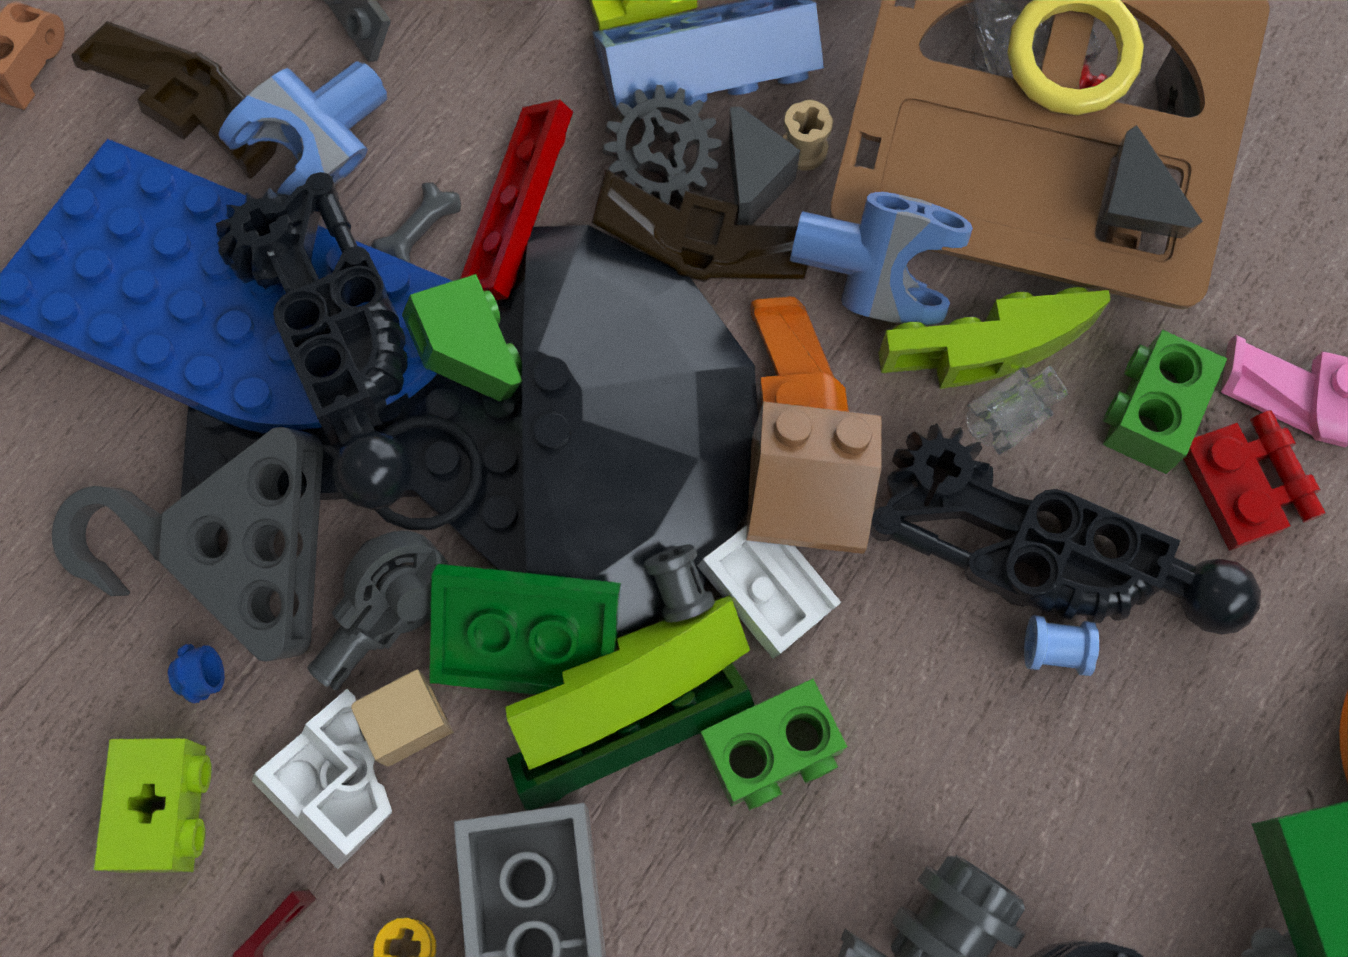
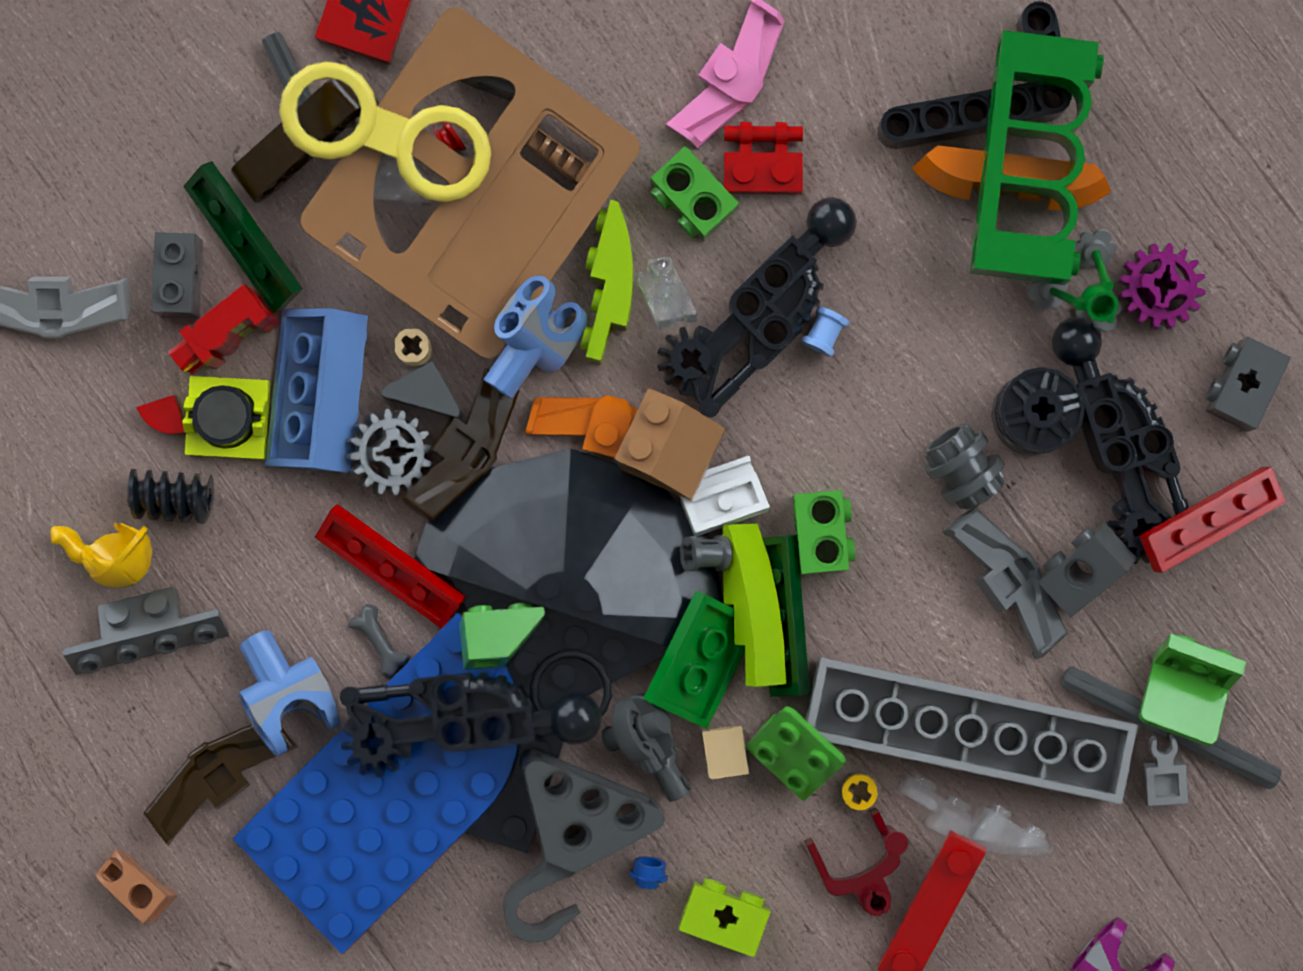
camera: 70 degrees left, 15 degrees up
(328, 783) = (746, 809): white slope -> none
(423, 817) = (795, 752): none -> bright green bracket
(1145, 194) = (561, 153): dark grey slope -> none

